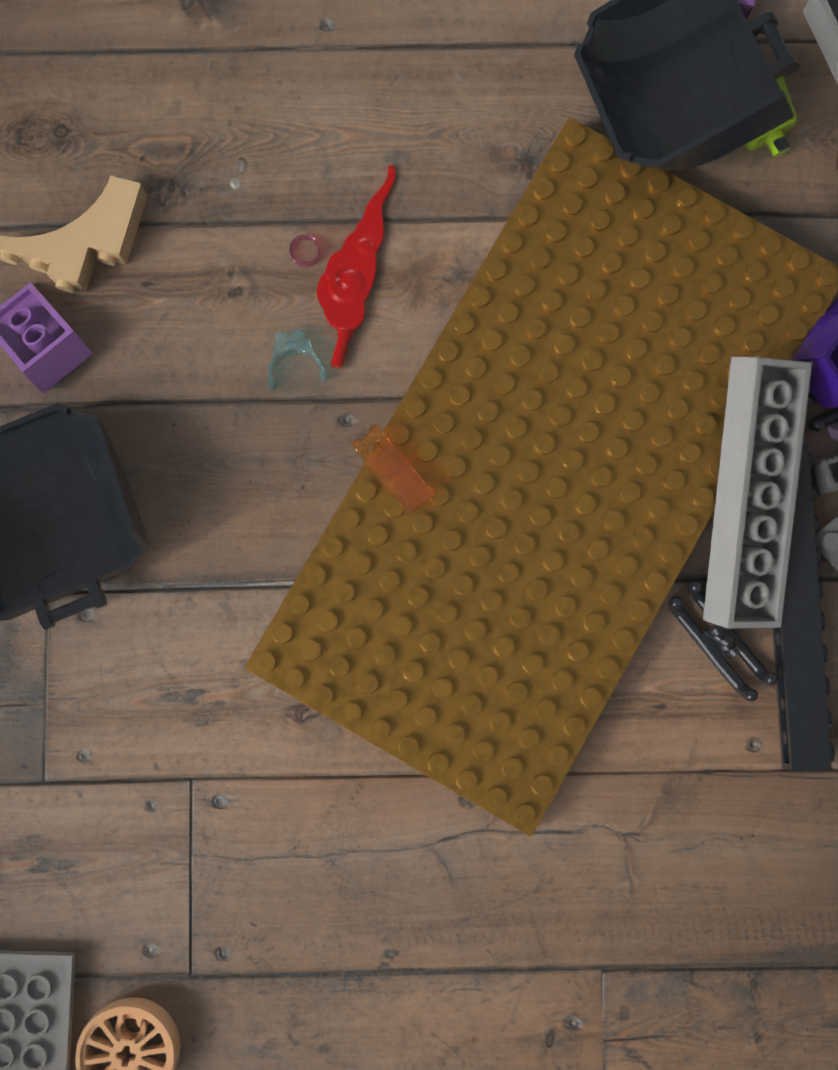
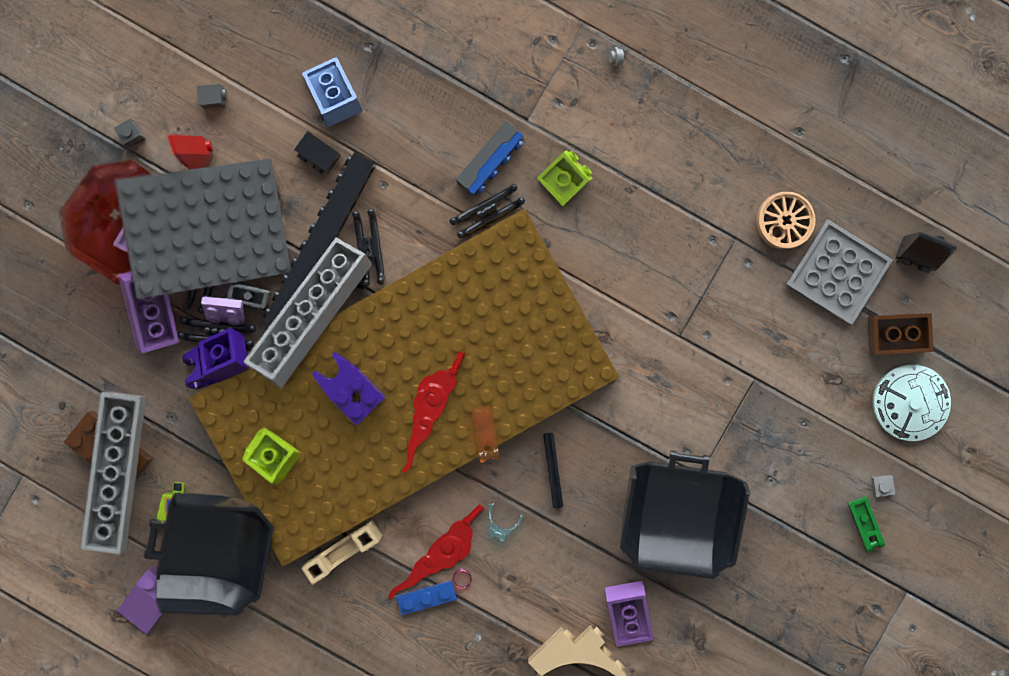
camera: 150 degrees left, 5 degrees up
(264, 476) = (553, 470): none -> black axle
(339, 196) = (426, 597): none -> blue plate
(485, 210) = (357, 541): none -> tan arch
(497, 919) = (565, 177): none -> lime plate
(498, 465) = (430, 403): none -> red piece
(580, 797) = (487, 211): none -> black piece
(624, 880) = (490, 157): none -> piece
(638, 419) = (345, 384): none -> dark purple brick
(682, 254) = (270, 456): none -> lime slope

